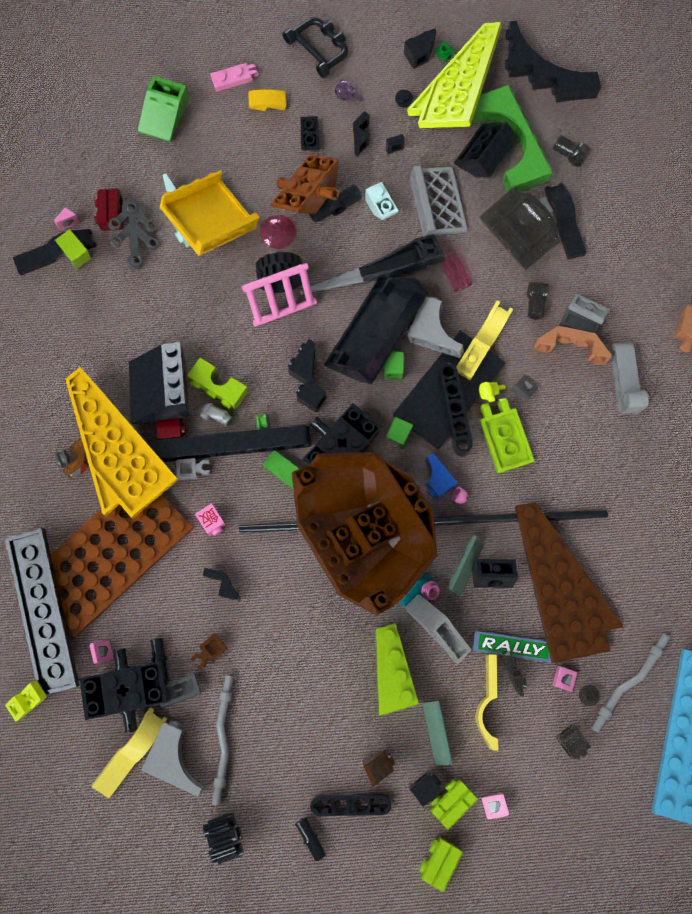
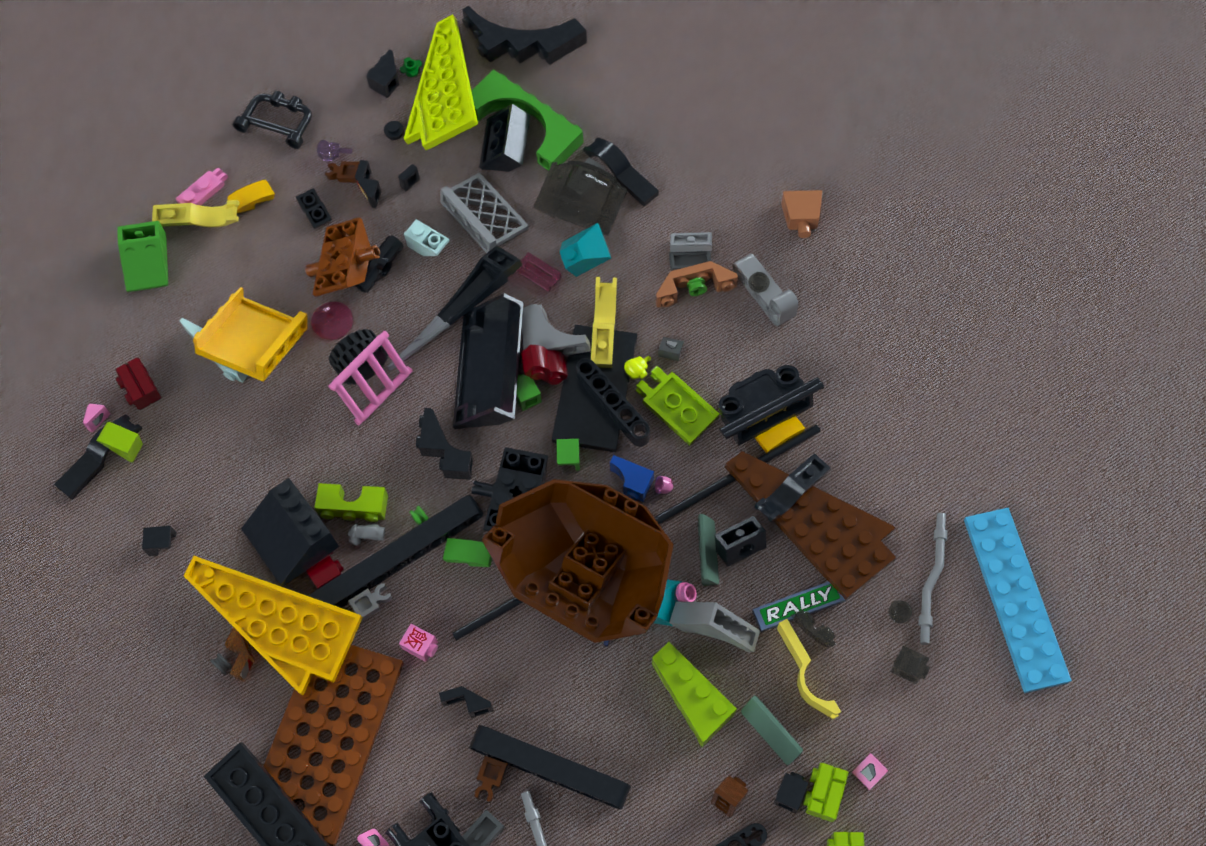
camera: 25 degrees left, 10 degrees down
(63, 338) = (157, 538): none -> black panel
(133, 231) = (177, 392): dark grey plant -> none
(217, 94) = (194, 214): none -> light yellow piece
(257, 668) = (550, 767): none -> black beam
(346, 115) = (344, 173): none -> reddish brown plate
(418, 351) = (544, 364): none -> dark red brick
(500, 273) = (584, 250): none -> teal slope
(537, 295) = (633, 254): clear smoke piece -> none
(558, 554) = (793, 488): none -> black piece
(564, 678) = (867, 608): bright pink slope -> none
(573, 348) = (696, 286): none -> bright green bush
(573, 501) = (779, 434): none -> yellow slope
(574, 152) = (595, 102): clear smoke piece -> none
(575, 472) = (765, 402): none -> black brick
(625, 371) = (759, 282): none -> clear smoke plate

